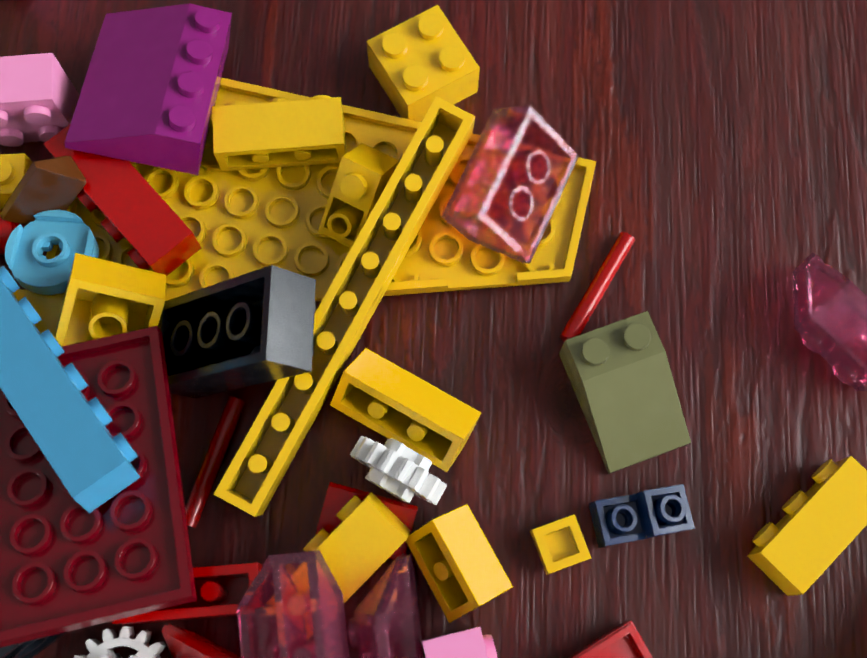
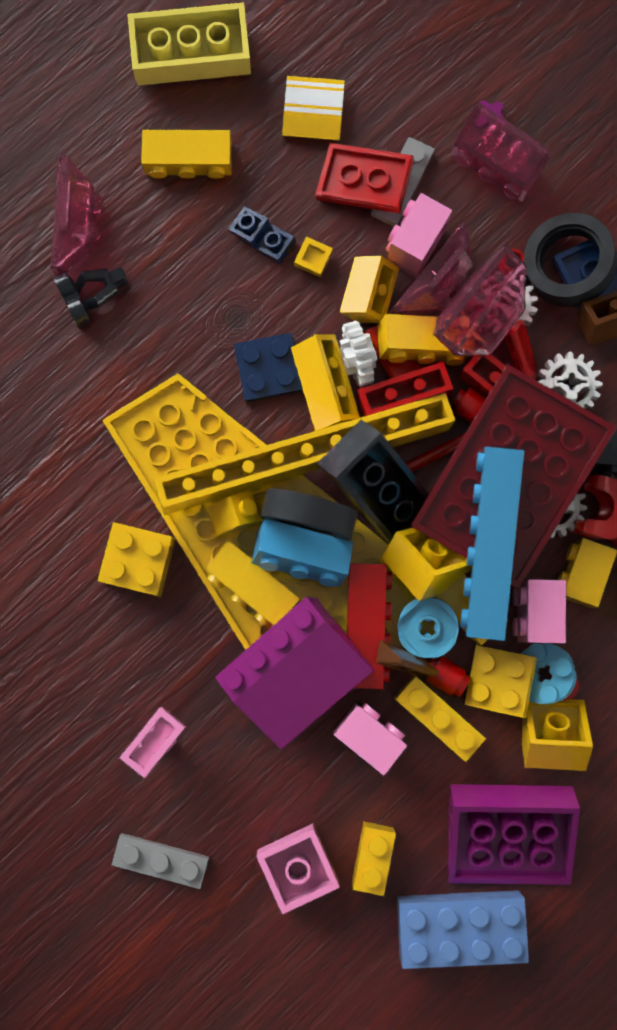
camera: 135 degrees left, 10 degrees up
(217, 542) = (468, 404): none -> red brick
(251, 196) = (302, 553): none -> dark azure brick
(278, 226) = (309, 513): none -> black tyre
(305, 478) = (405, 389): none -> red brick
(489, 374) = (267, 367): none -> dark blue plate
(511, 183) = (161, 443): slope -> none
(598, 286) = (168, 359): red bar -> none
(626, 391) = (209, 295): olive slope -> none
(767, 255) = (71, 291): none -> black piece

